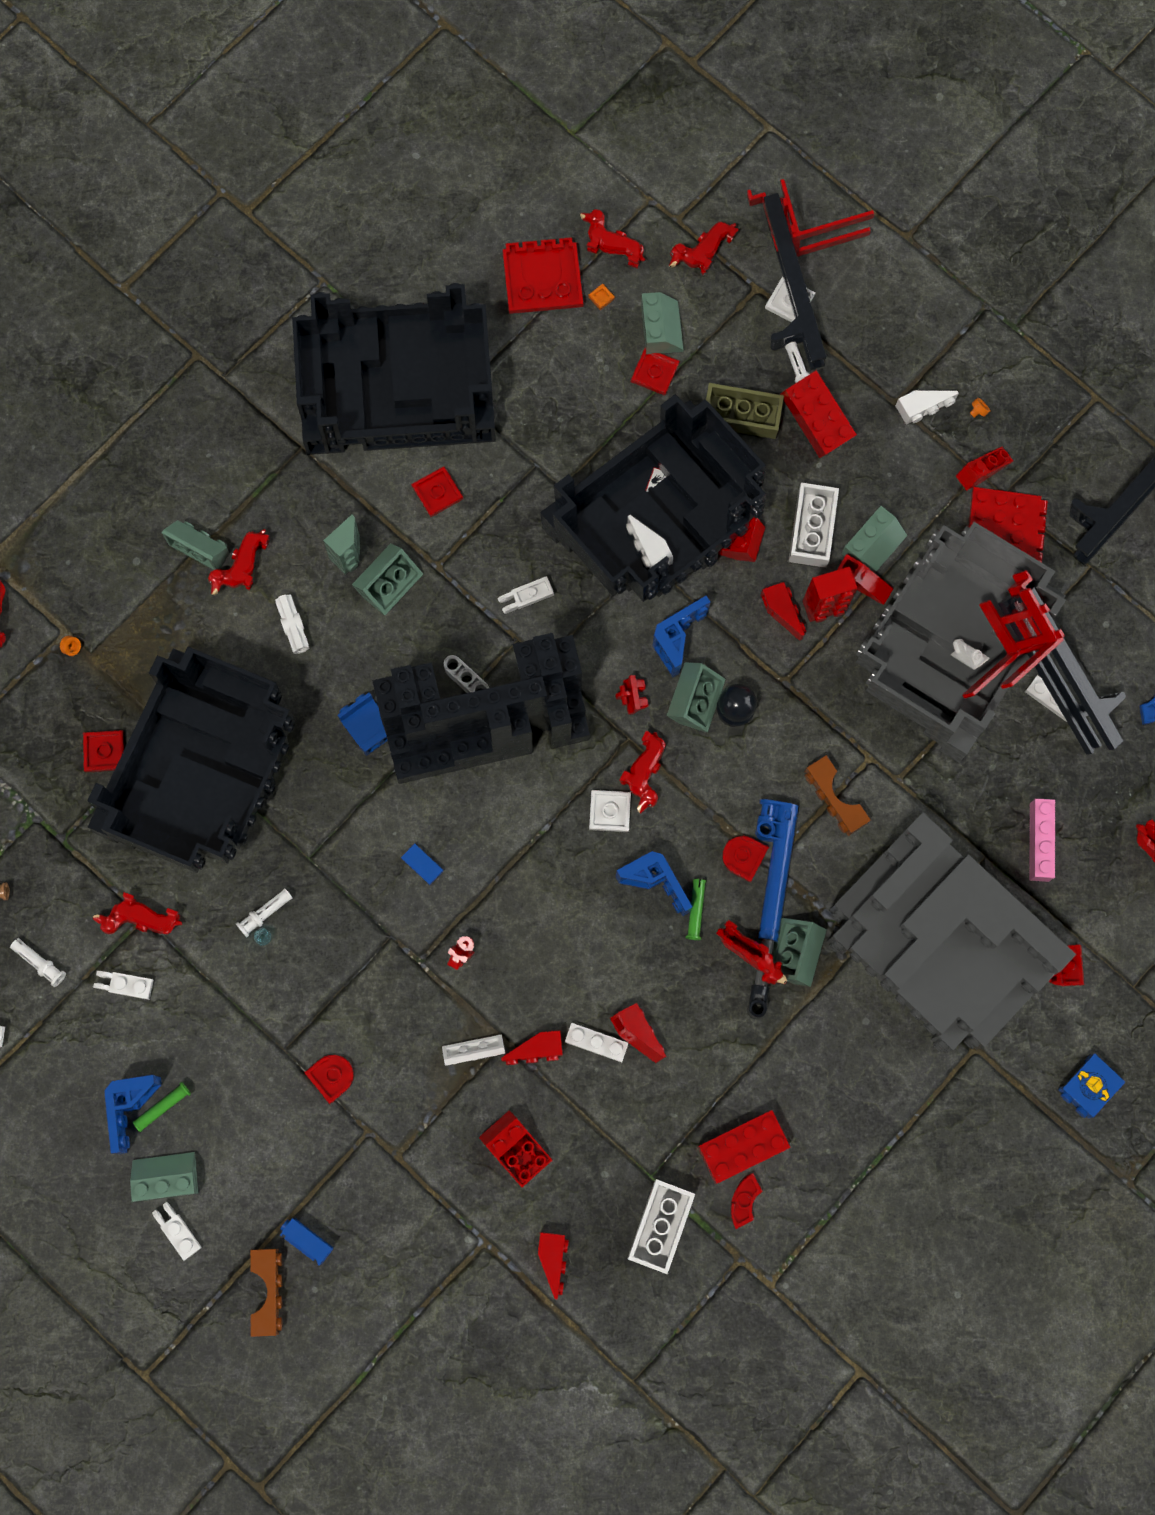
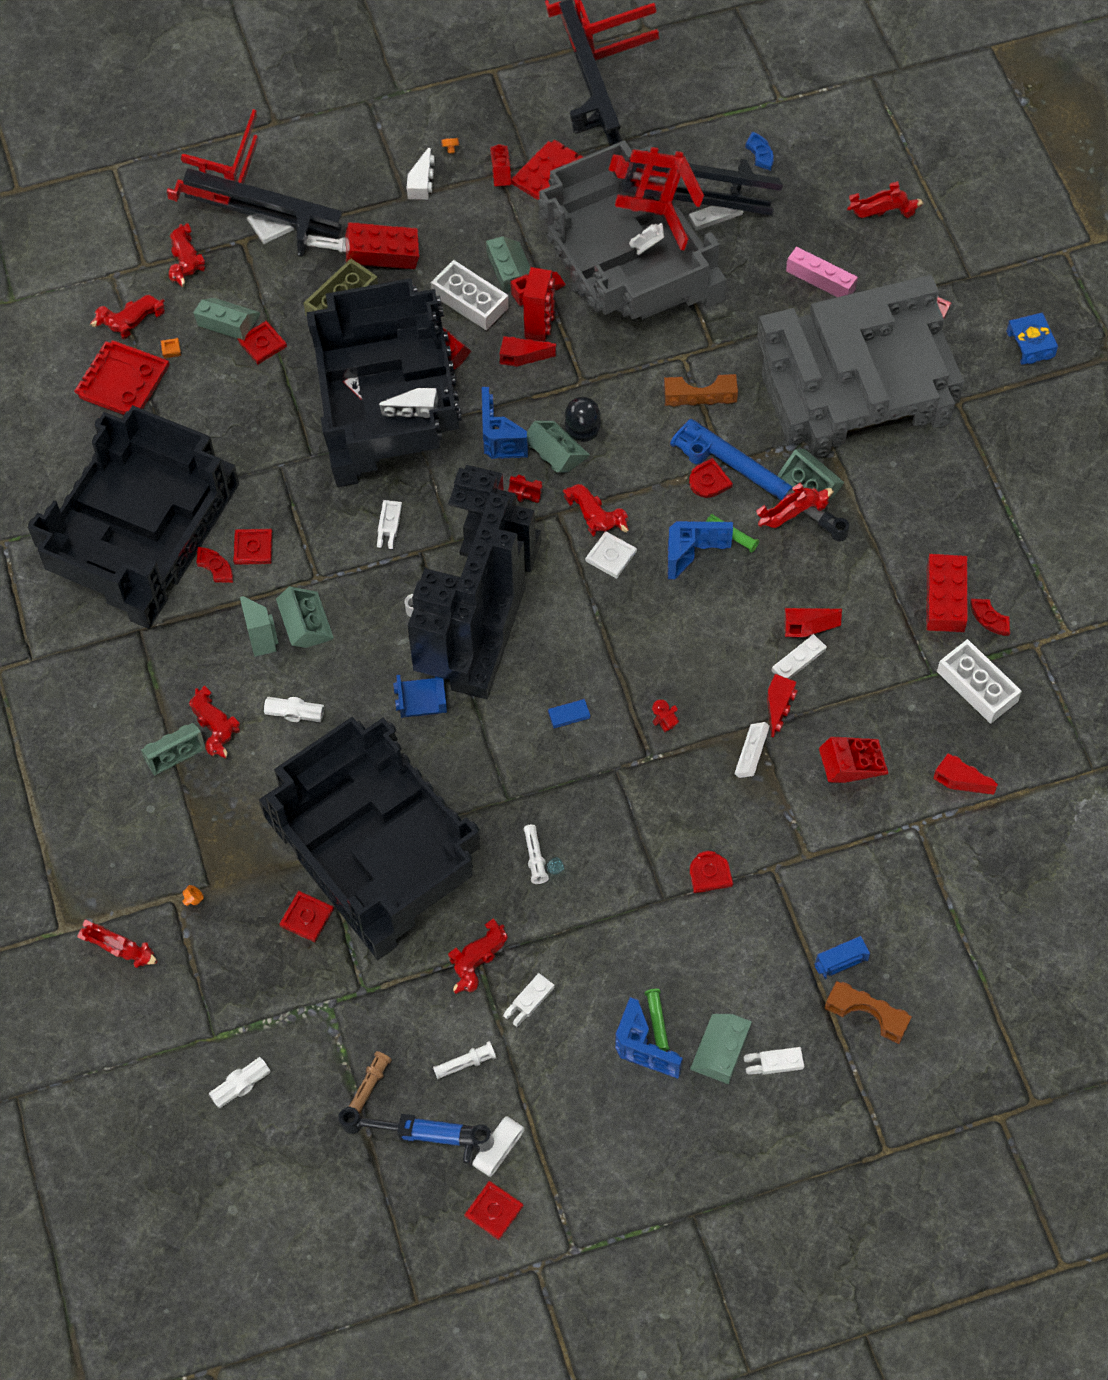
camera: 55 degrees left, 15 degrees down
(401, 470) = (215, 564): none -> red tile

